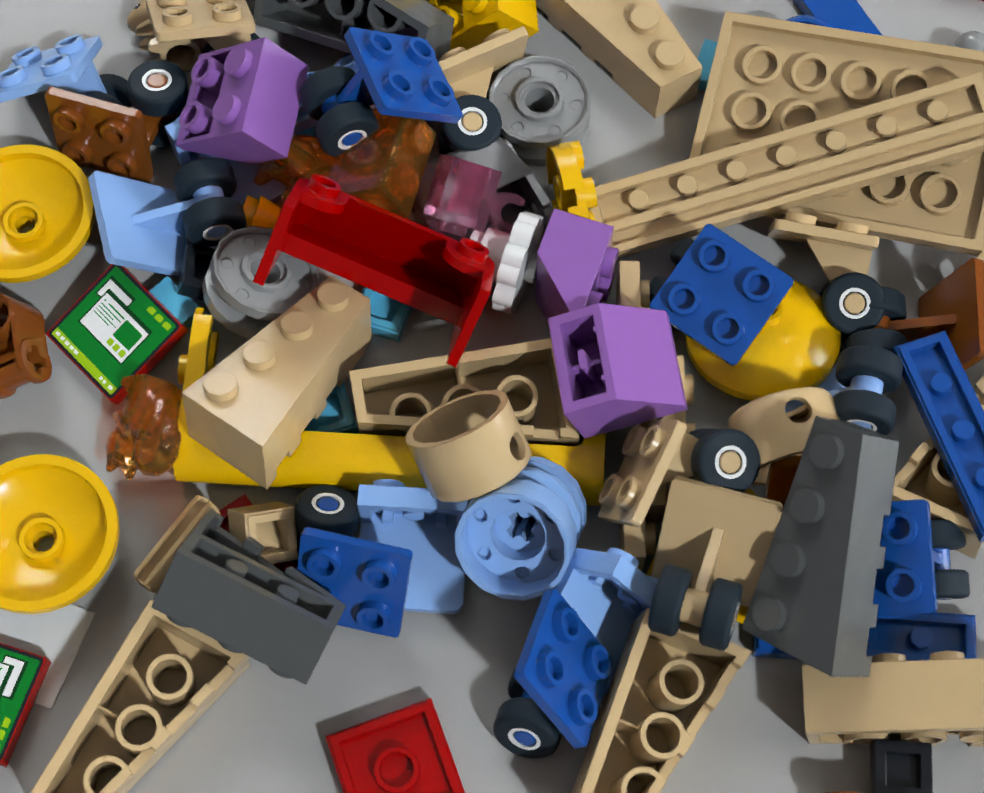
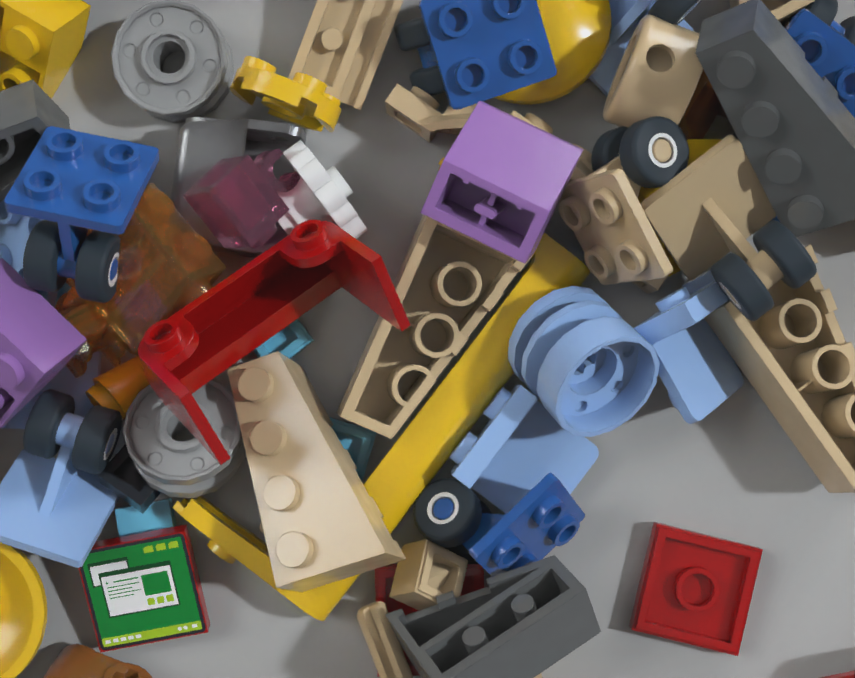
camera: 60 degrees left, 20 degrees up
(145, 428) = (264, 621): clear orange animal -> none
(469, 446) = (468, 359): tan piece -> none
(470, 76) = (110, 114): tan plate -> none
(554, 683) = (730, 420): blue plate -> none
(574, 264) = (371, 151): medium lavender slope -> none

